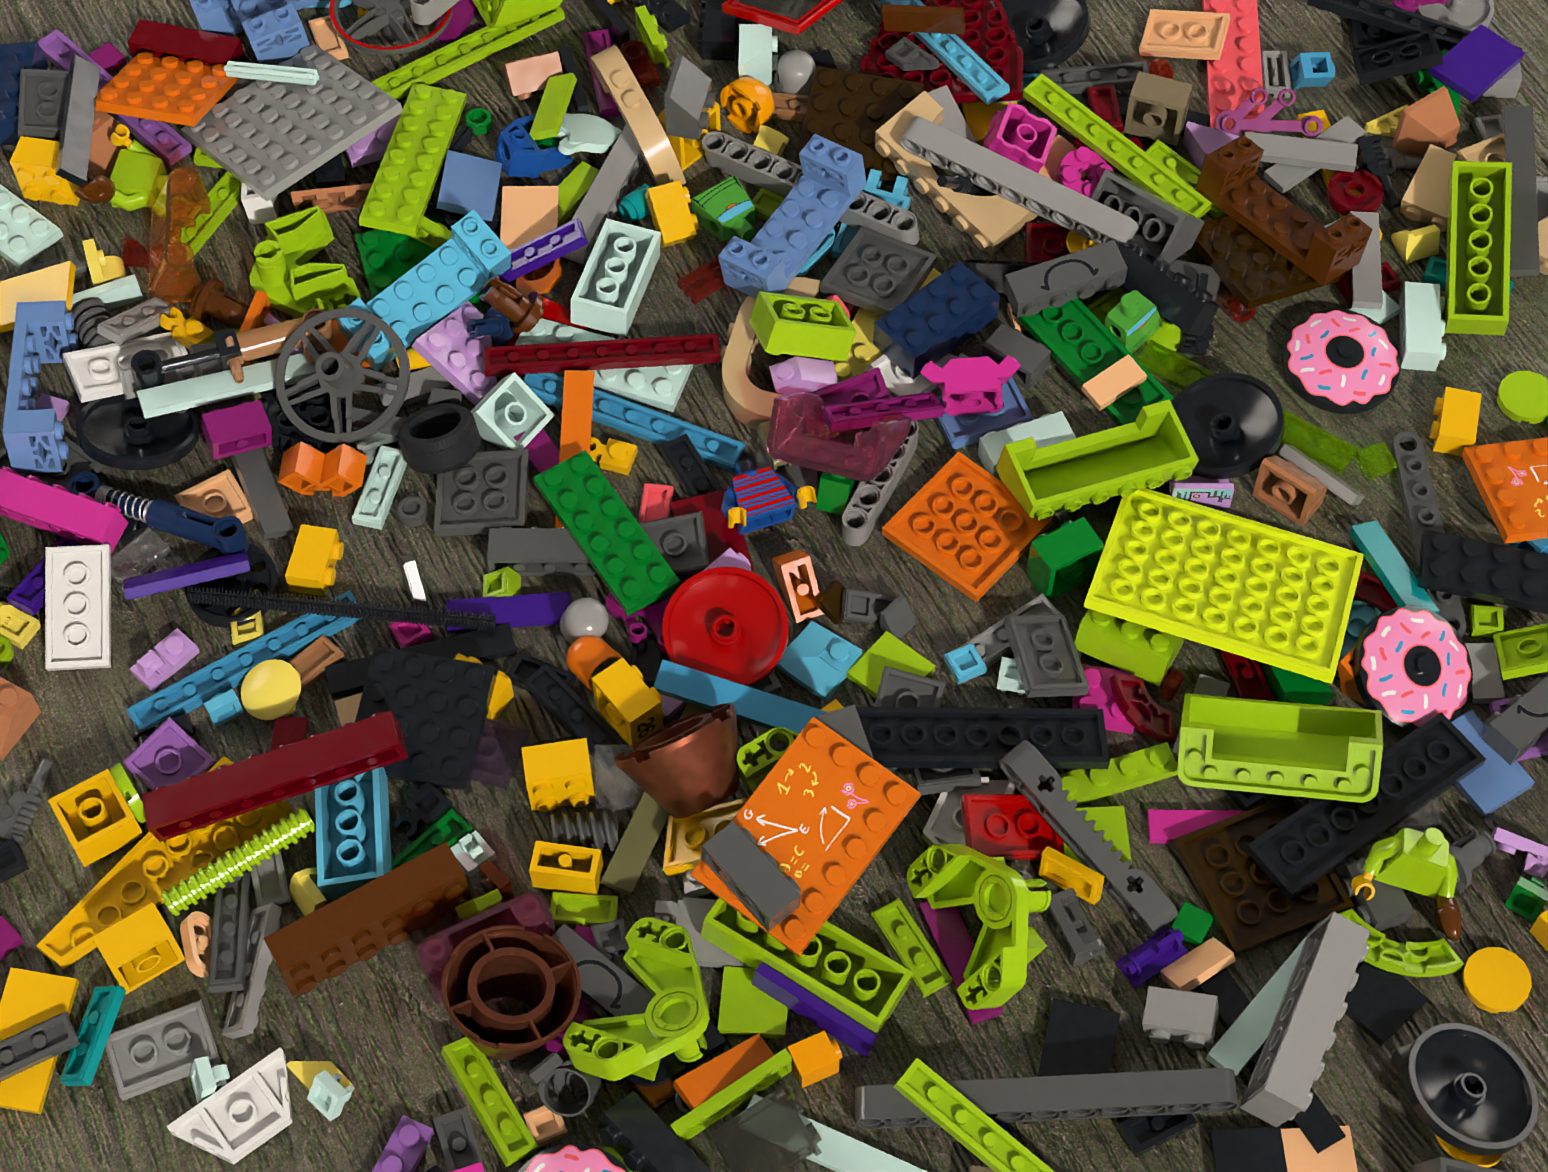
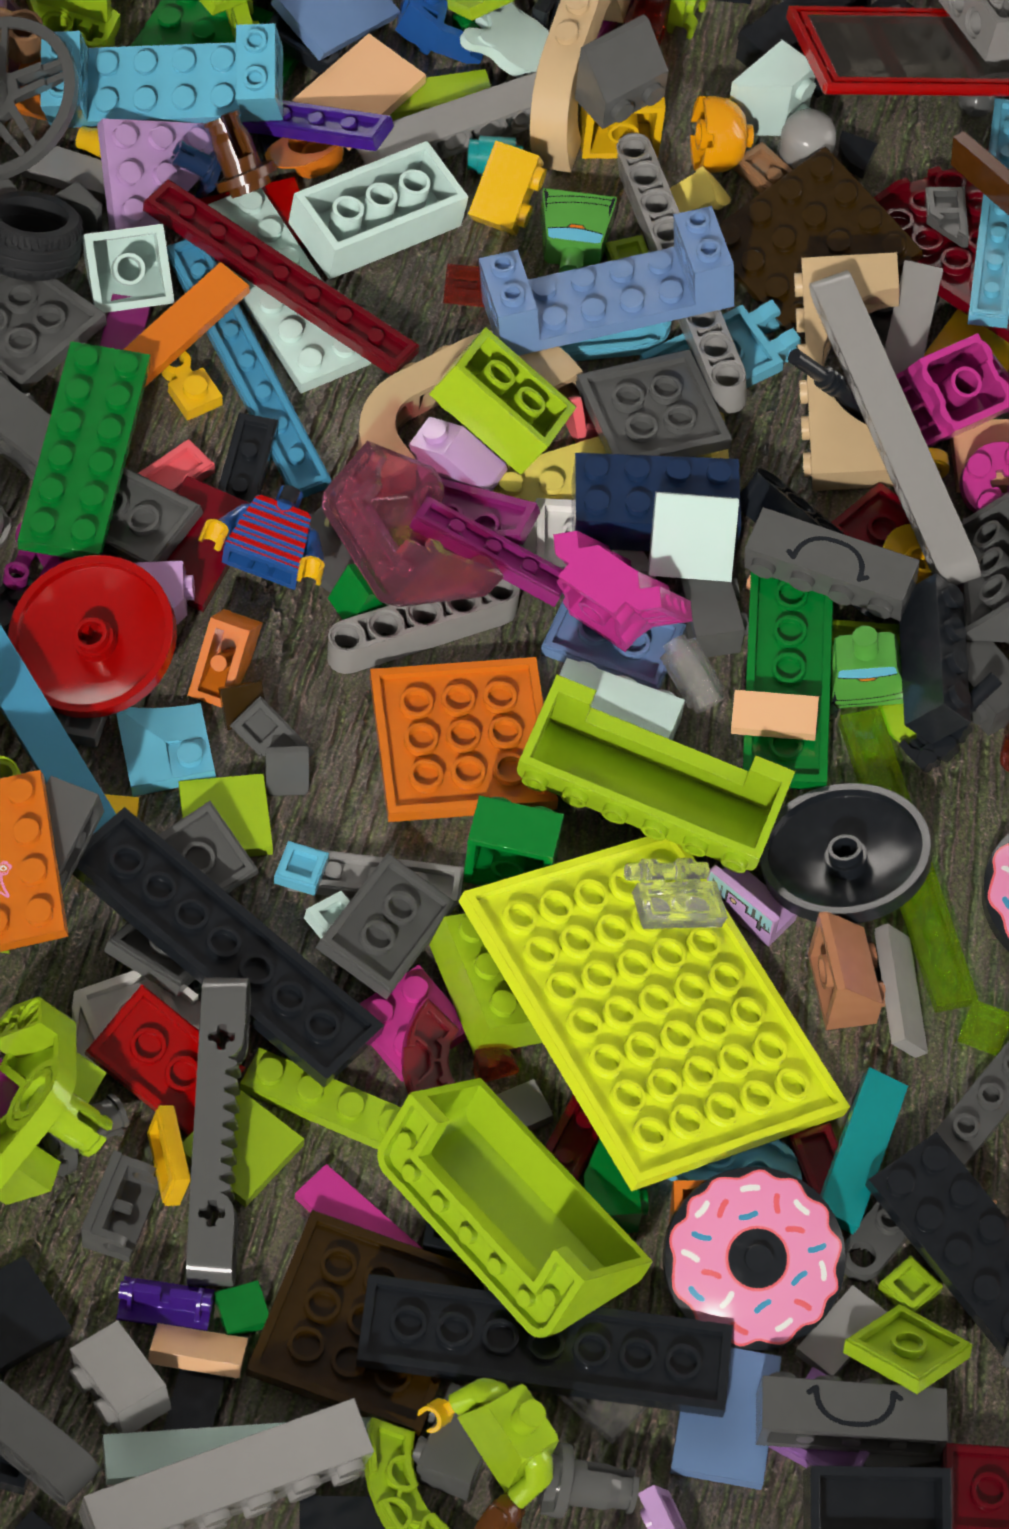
camera: 35 degrees right, 0 degrees up
(982, 319) = (693, 536): none -> light aqua tile
(1046, 395) = (692, 673): none -> clear head
(1180, 520) = (678, 903): none -> clear plate

